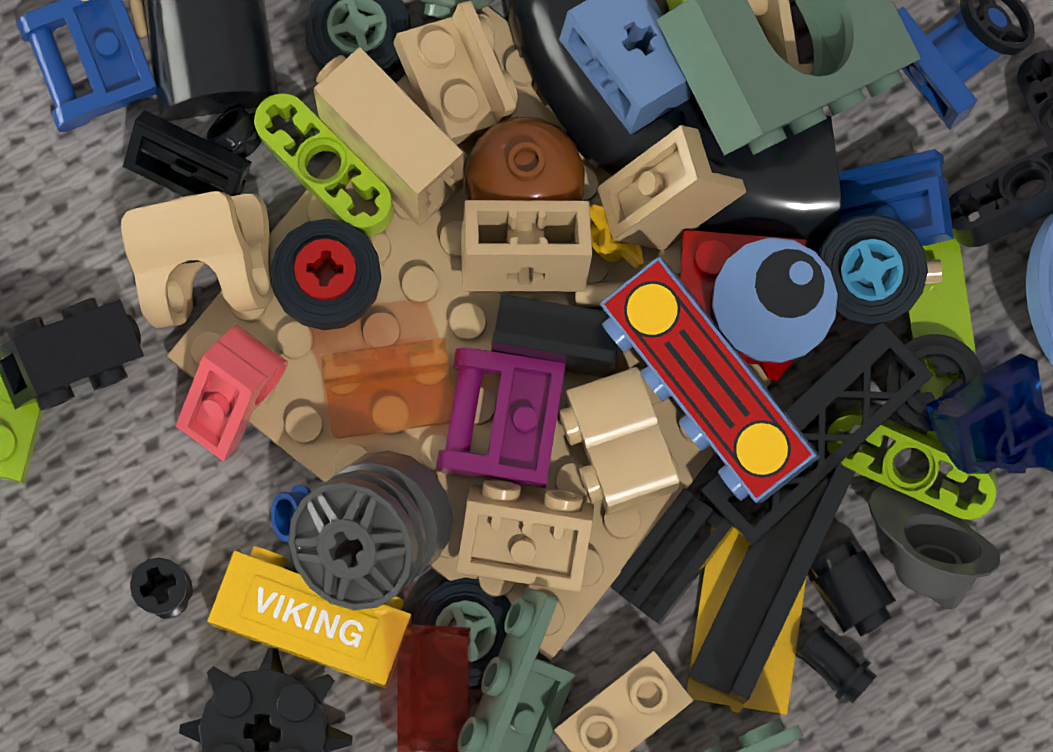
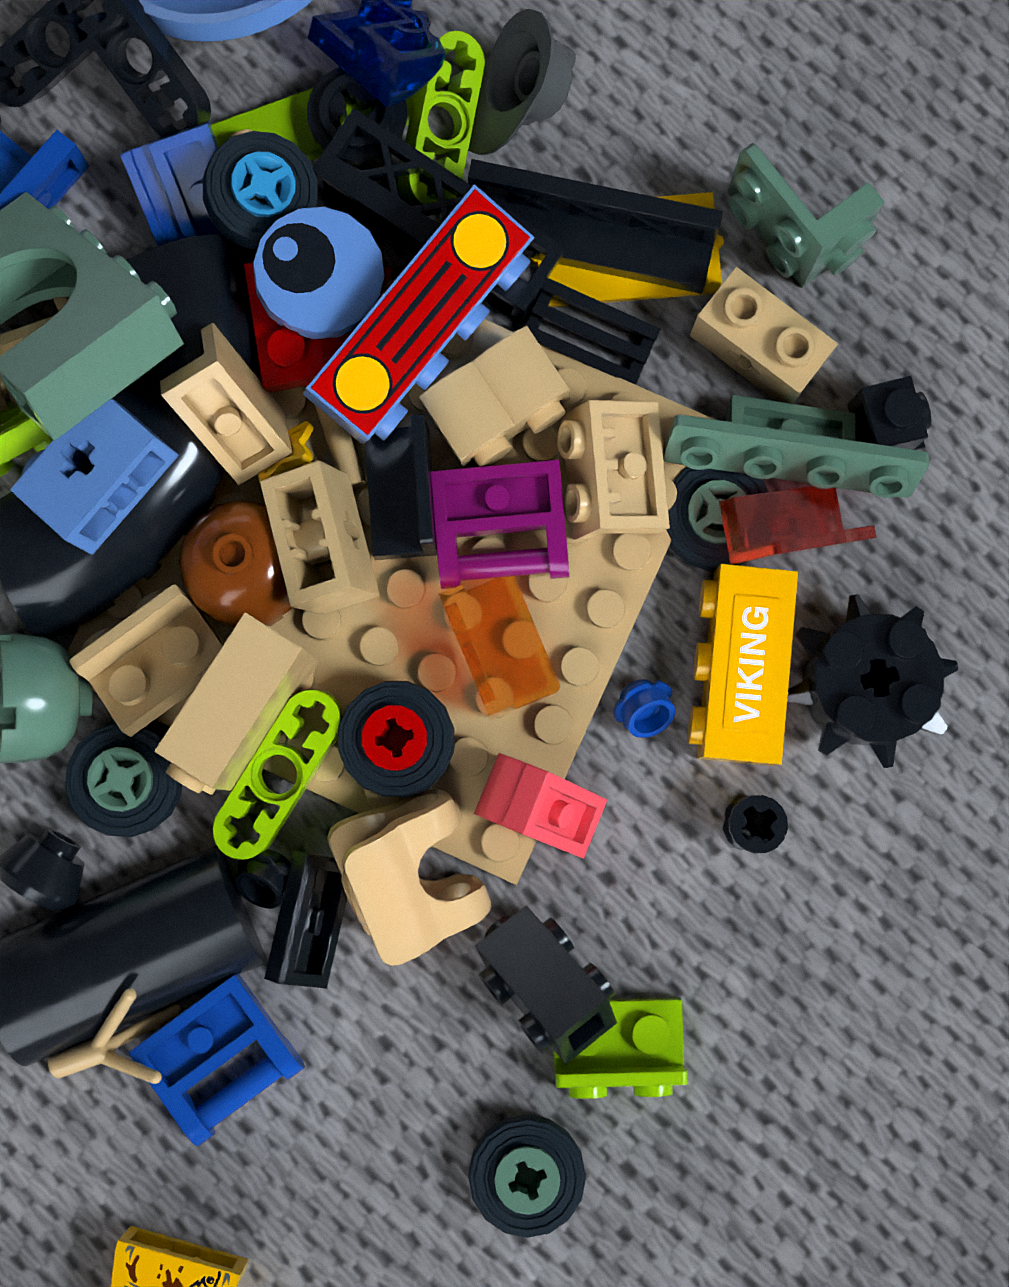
camera: 105 degrees left, 5 degrees up
(370, 530) = (653, 620): dark grey wheel -> none
(836, 665) = (656, 151): black pin -> none
(852, 589) = (581, 146): black brick -> none

